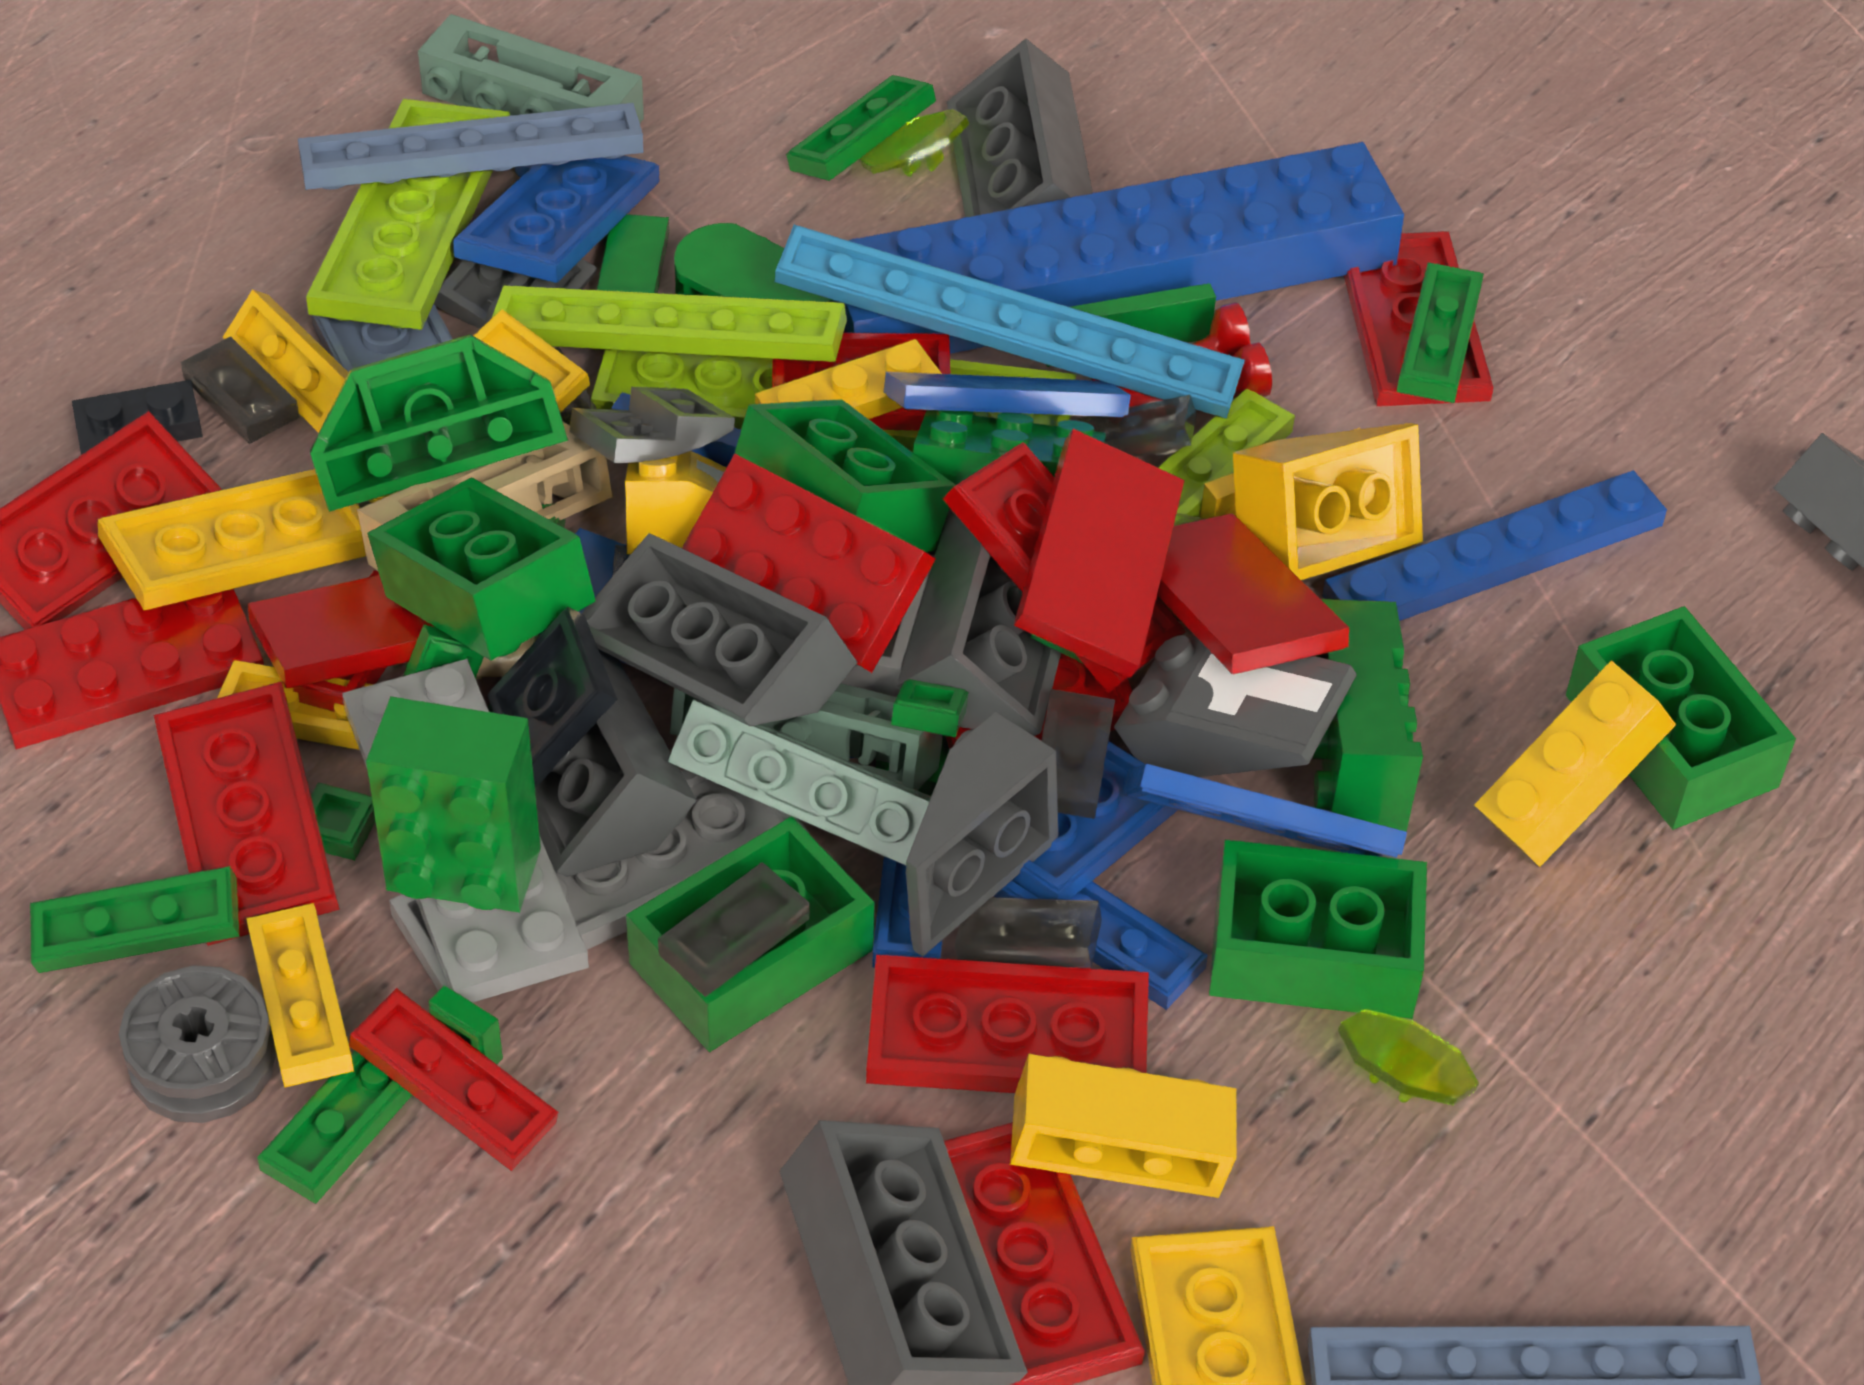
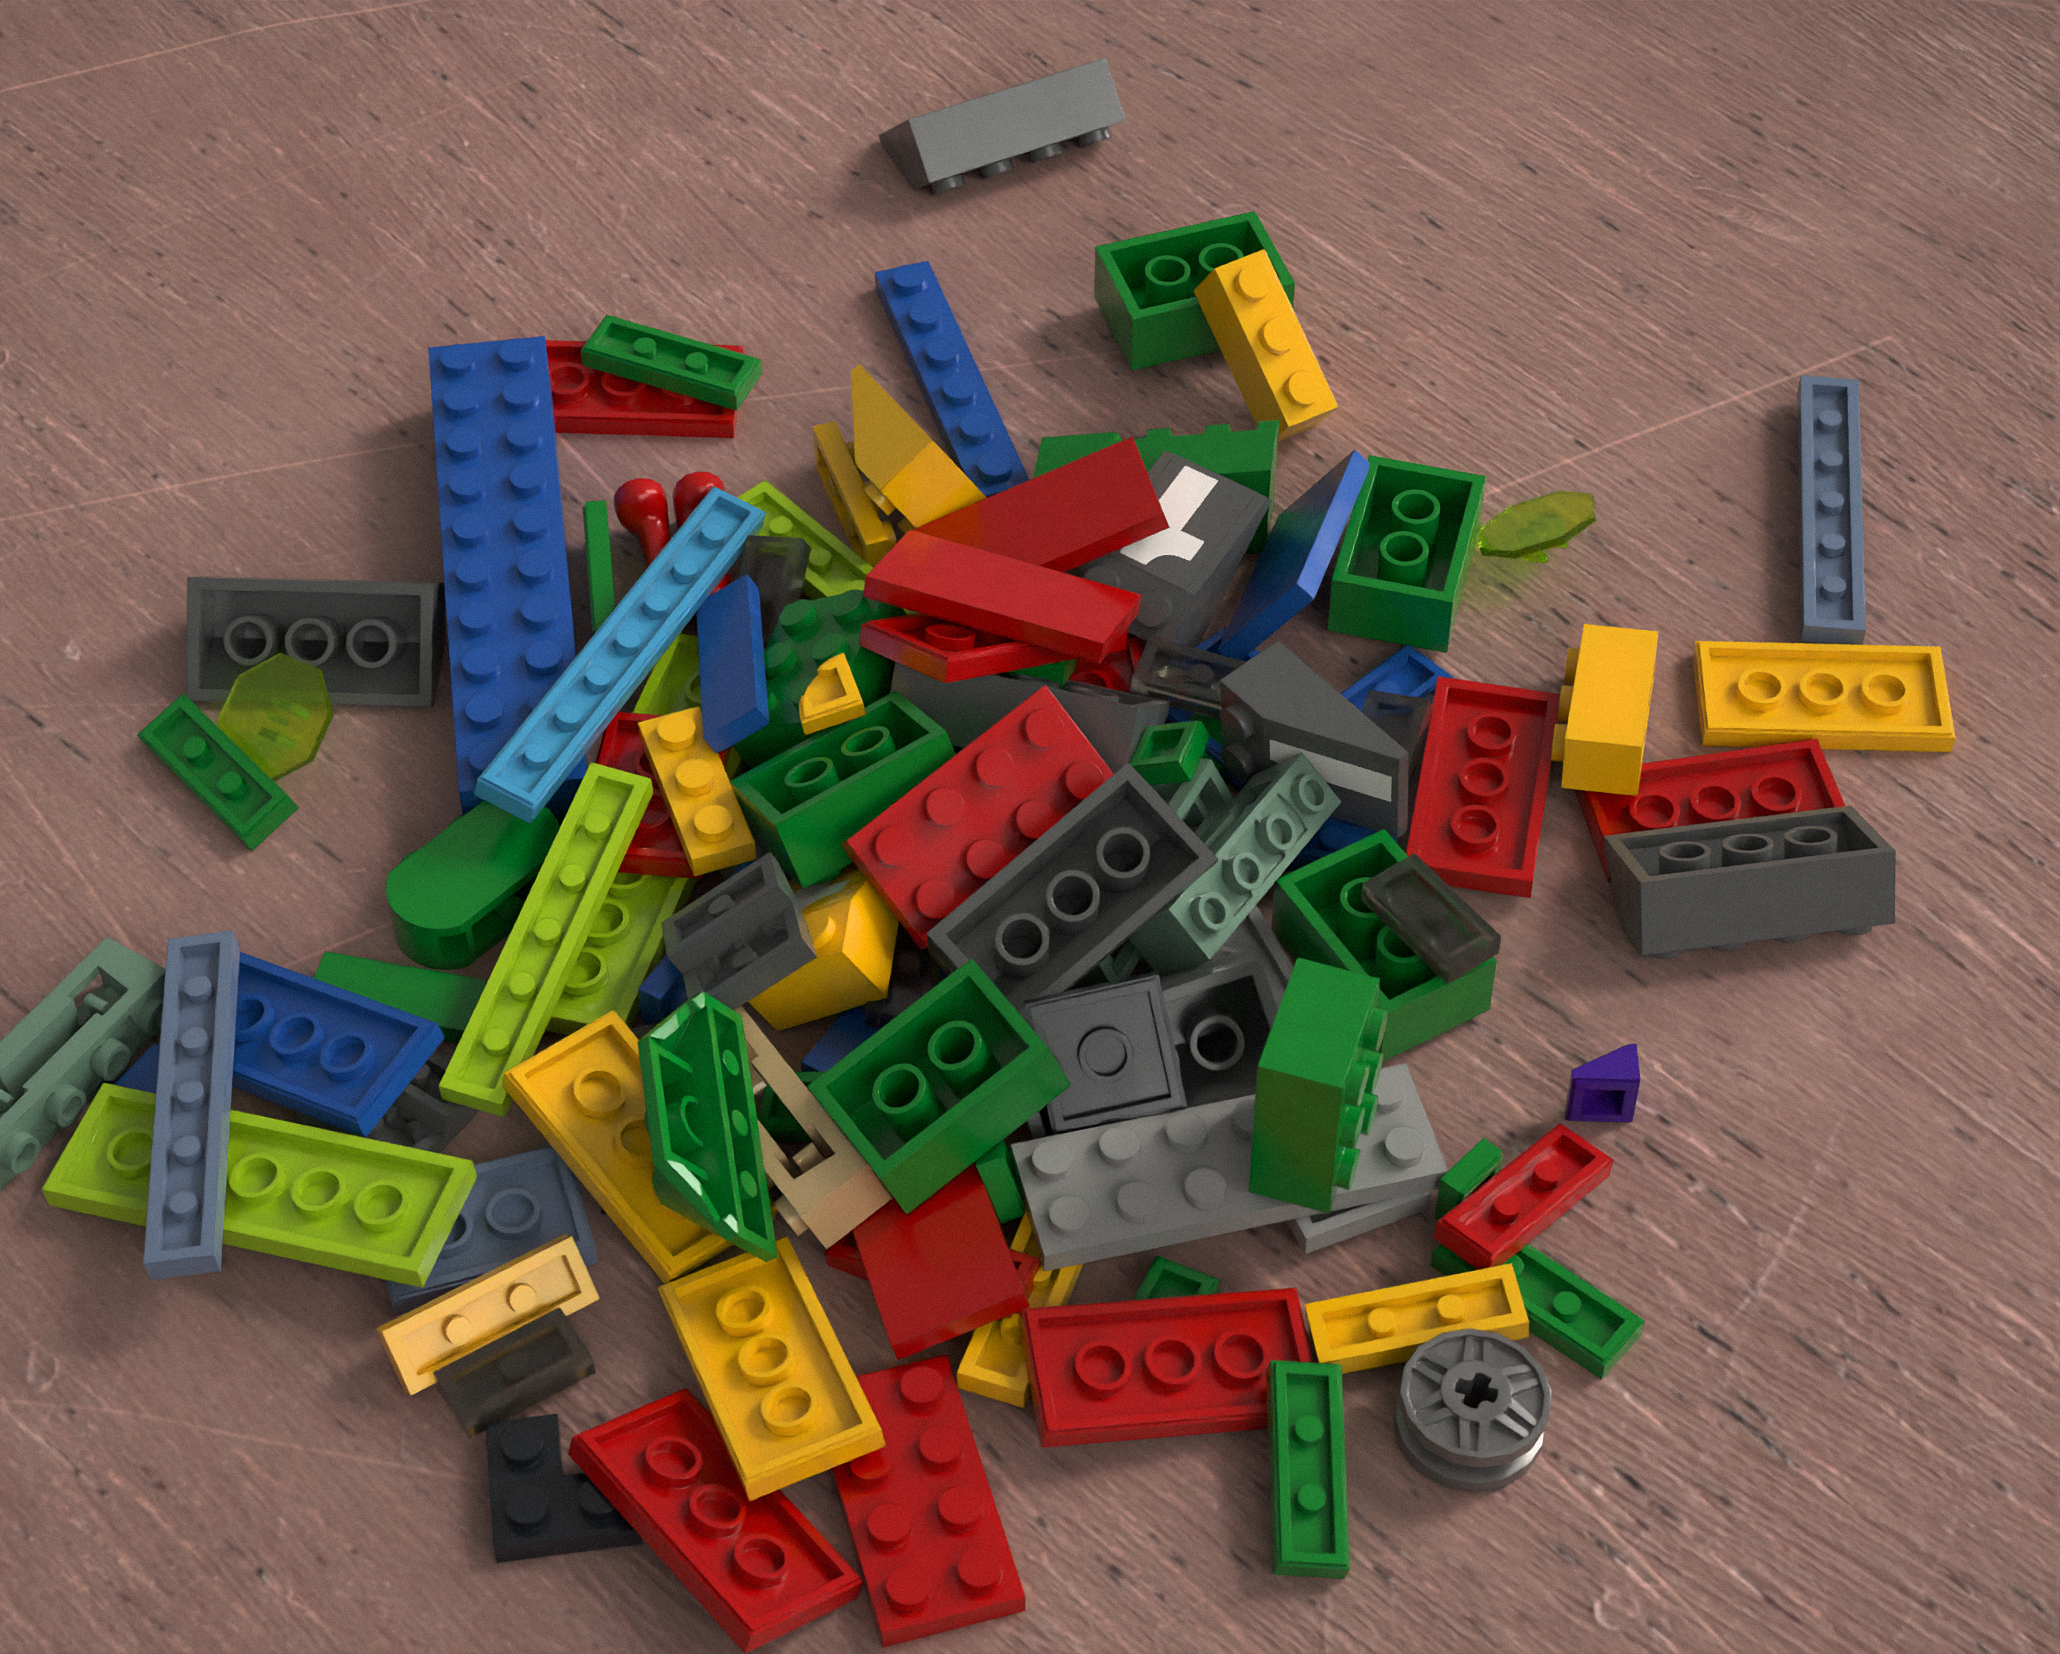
camera: 80 degrees left, 0 degrees up
(605, 1151) = (1605, 1088): none -> dark purple slope
(929, 435) = (830, 697): none -> yellow tile

